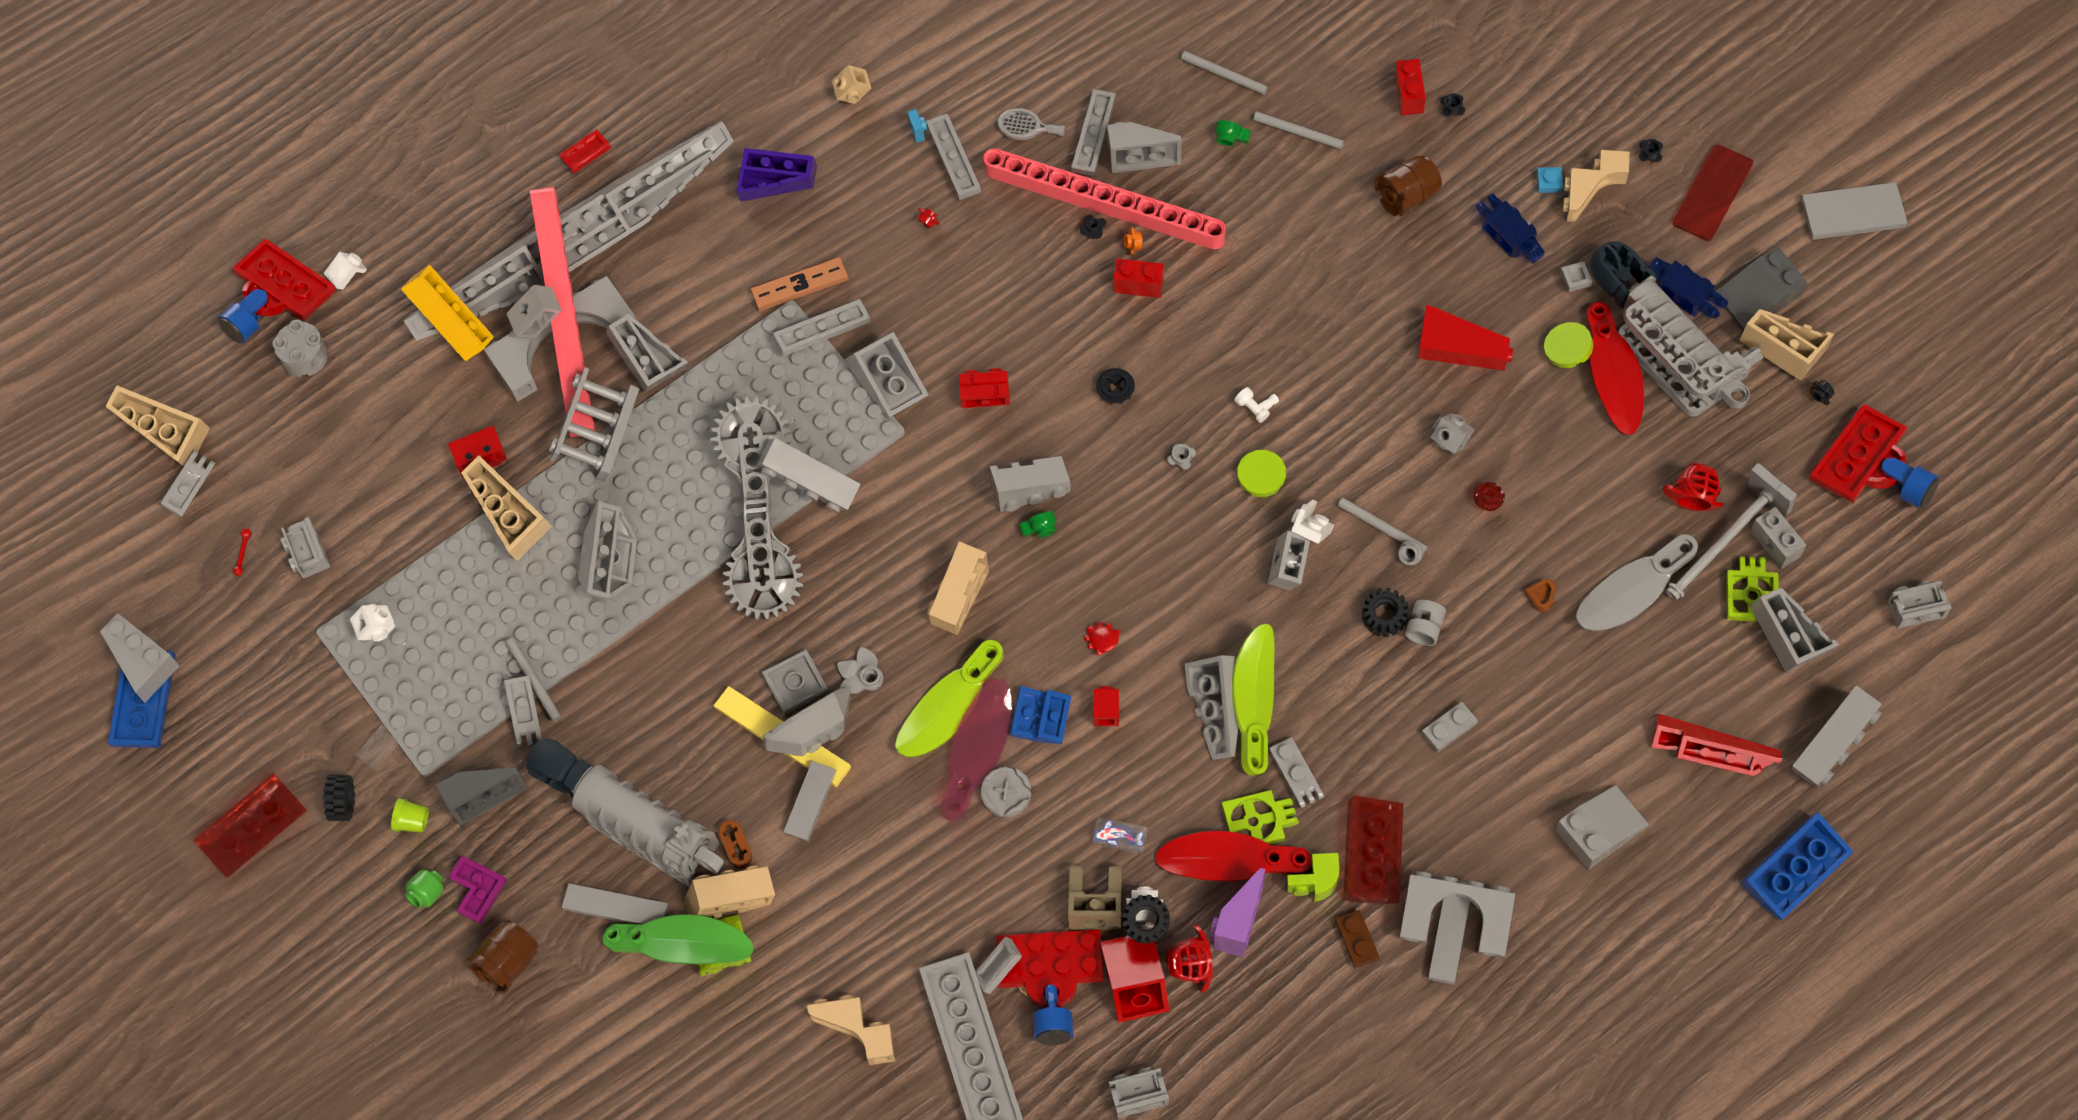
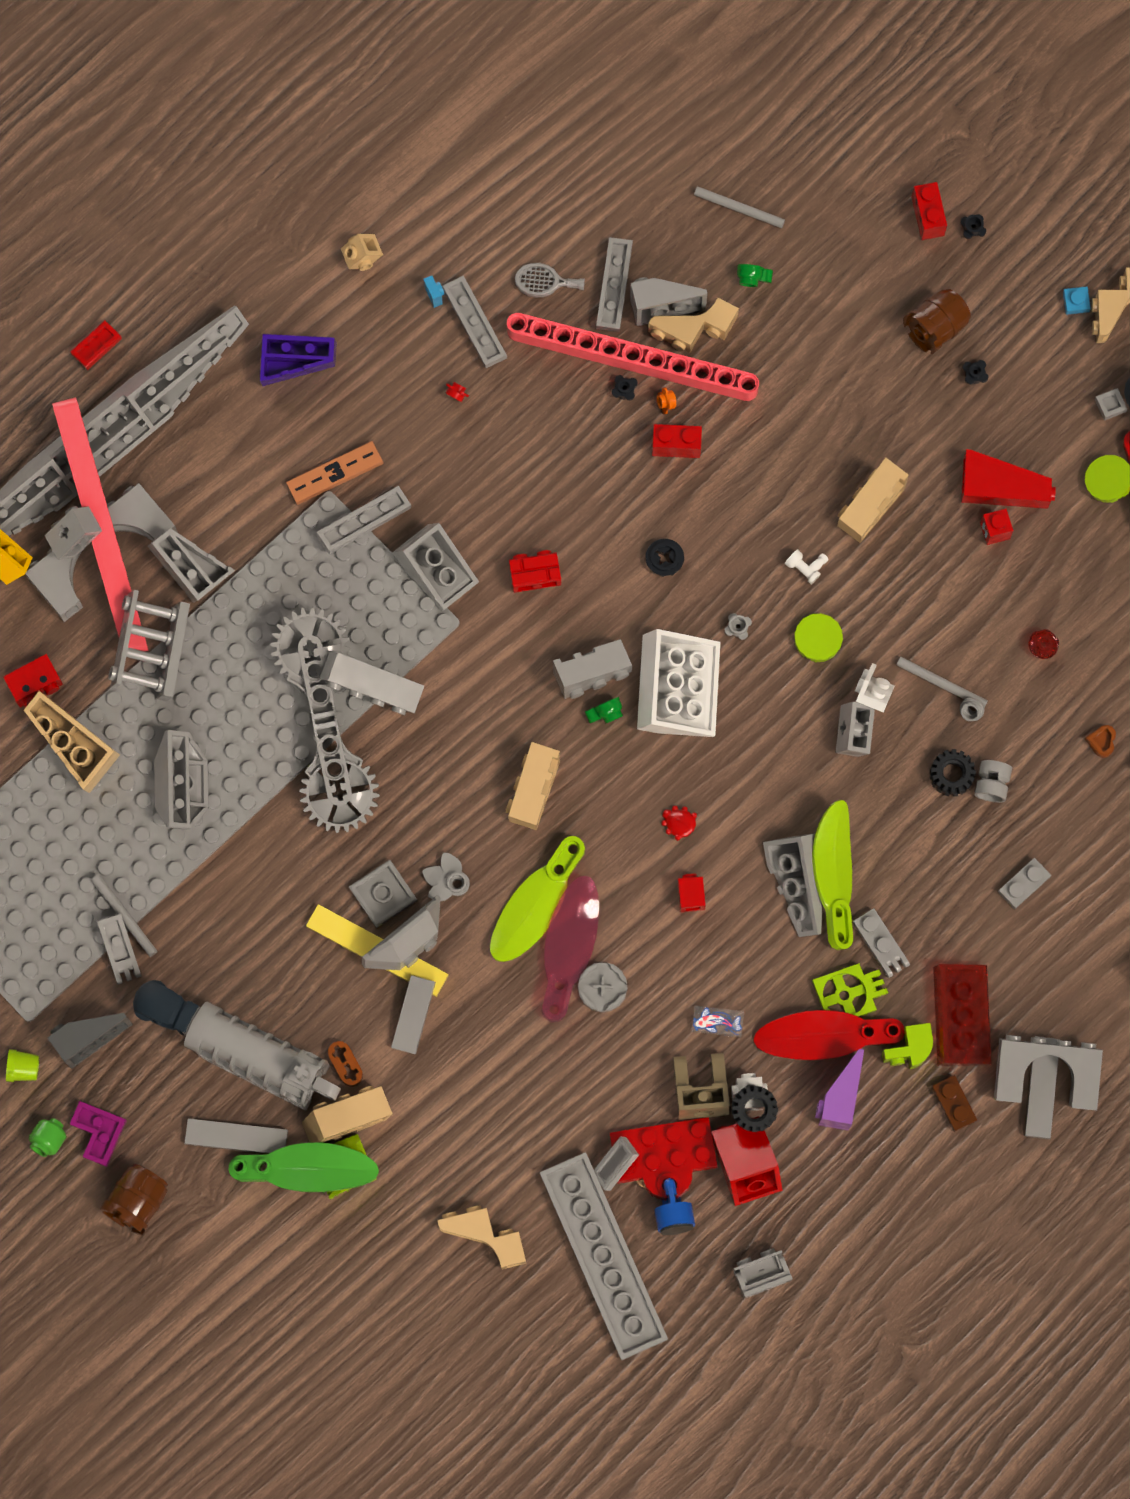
camera: 10 degrees left, 10 degrees up
(1040, 715) = (627, 907): blue slope -> none
(1115, 505) = (678, 684): none -> white slope
(1159, 178) = (685, 330): none -> tan arch
(1191, 960) = (800, 1141): red piece -> none
(1298, 130) = (820, 265): light grey bar -> none
(1329, 346) = (872, 500): none -> tan wedge
(1438, 242) = (972, 378): none -> black plate
(1450, 381) = (996, 526): none -> red brick
(1451, 432) = (1002, 581): light grey brick -> none
(1509, 229) = (1042, 359): clear blue hinge -> none

